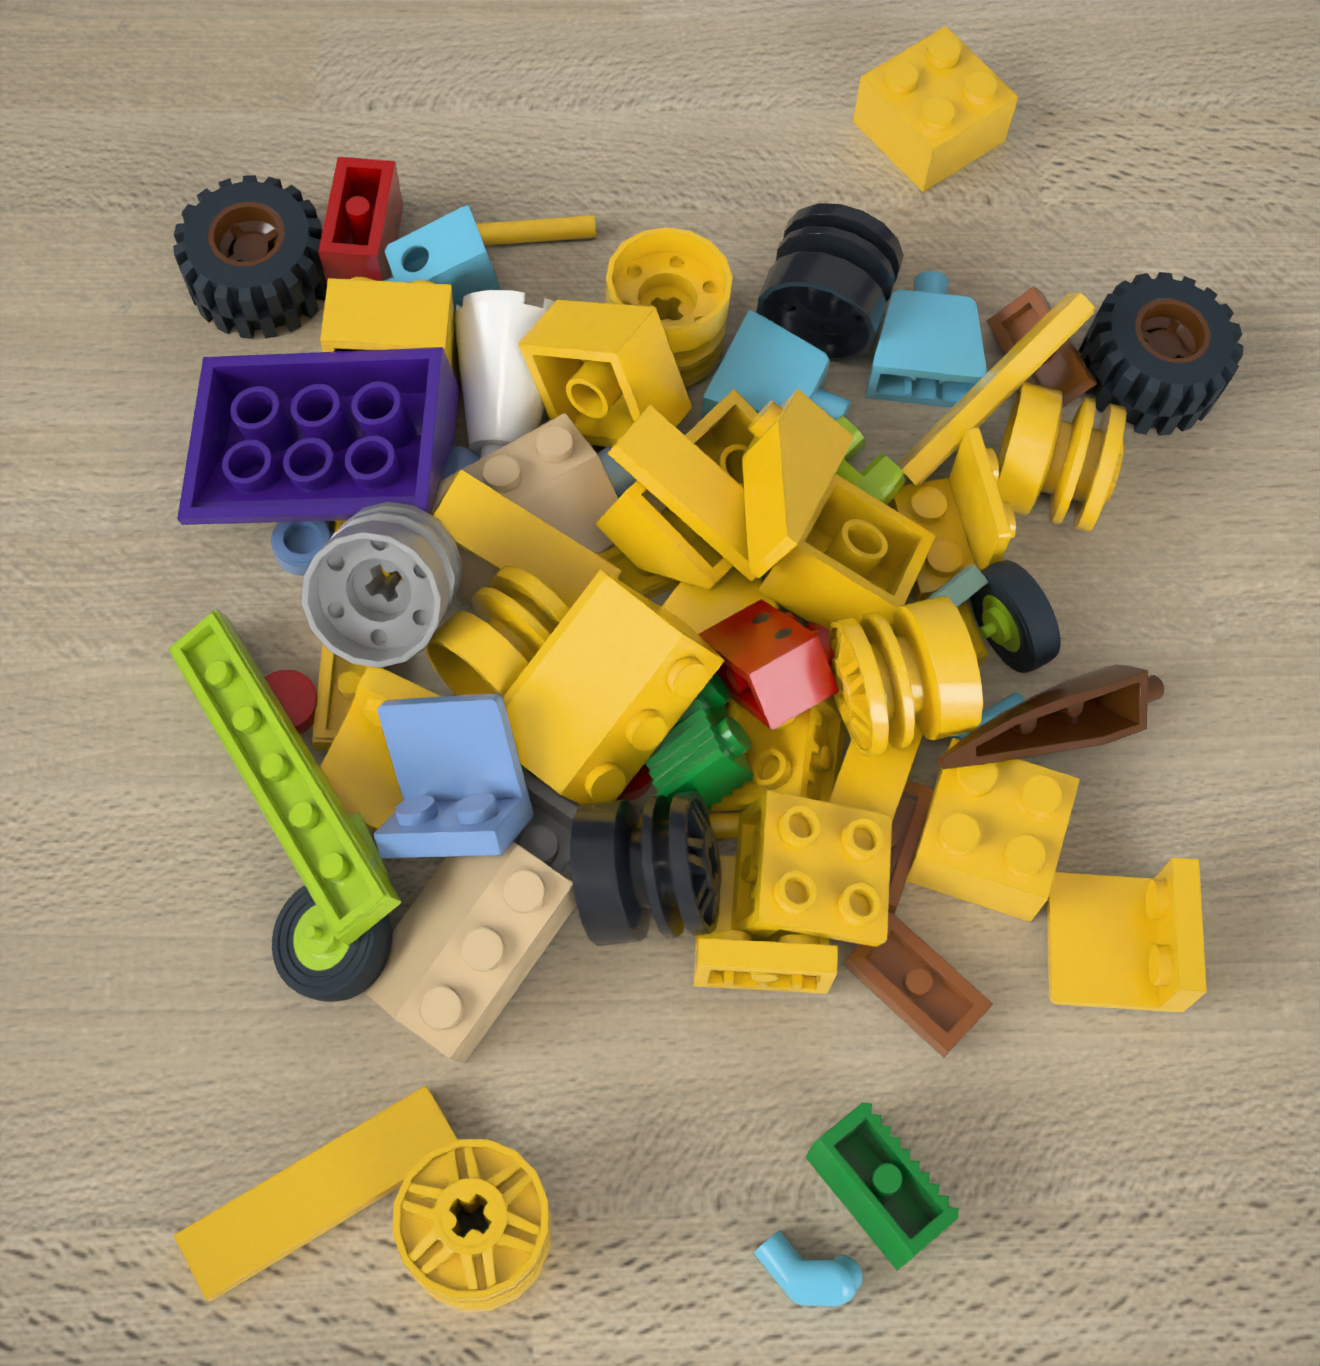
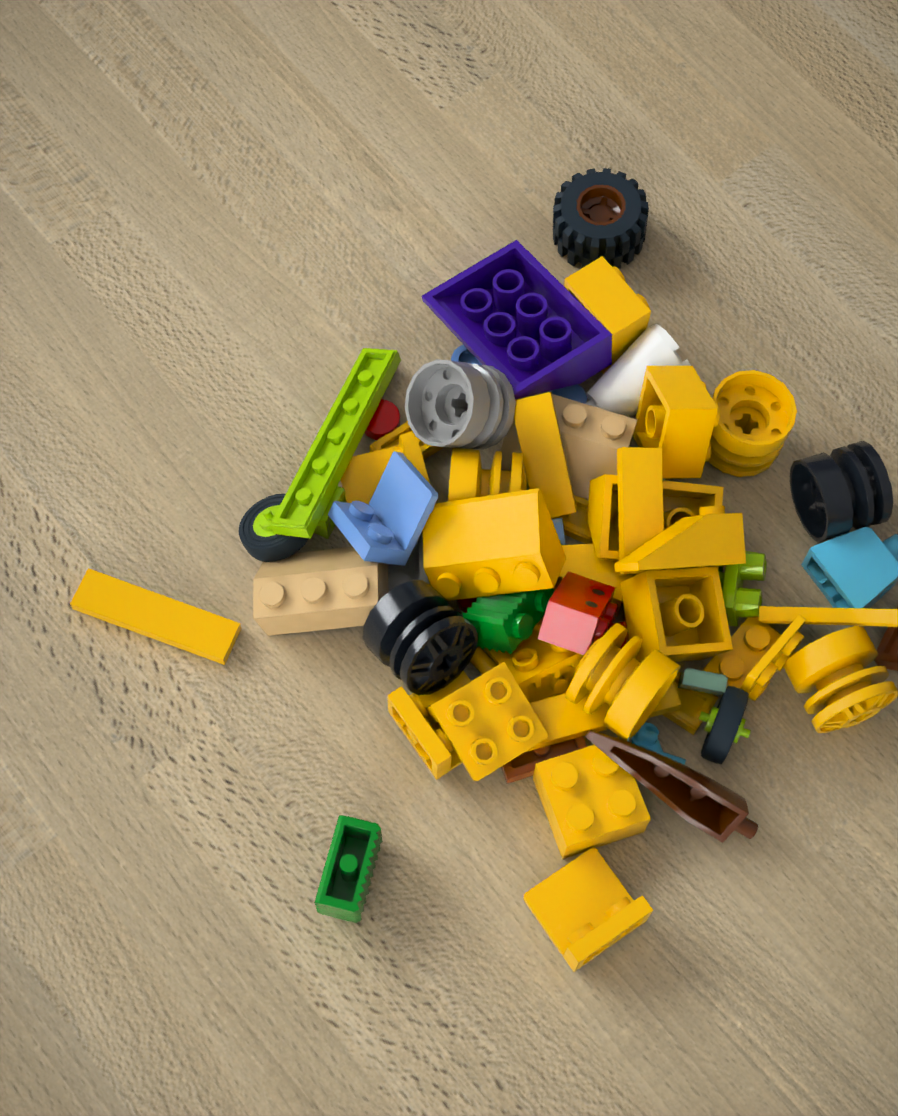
camera: 55 degrees right, 0 degrees up
(361, 219) = (661, 252): red brick -> none
(444, 253) = (676, 306): medium azure torso -> none
(481, 1268) = (187, 713): yellow wheel -> none
(537, 230) = (733, 322): yellow bar -> none
(771, 365) = (766, 507): medium azure torso -> none
(809, 1281) = (279, 871): medium azure arm -> none
(919, 986) = (475, 820): dark orange plate -> none

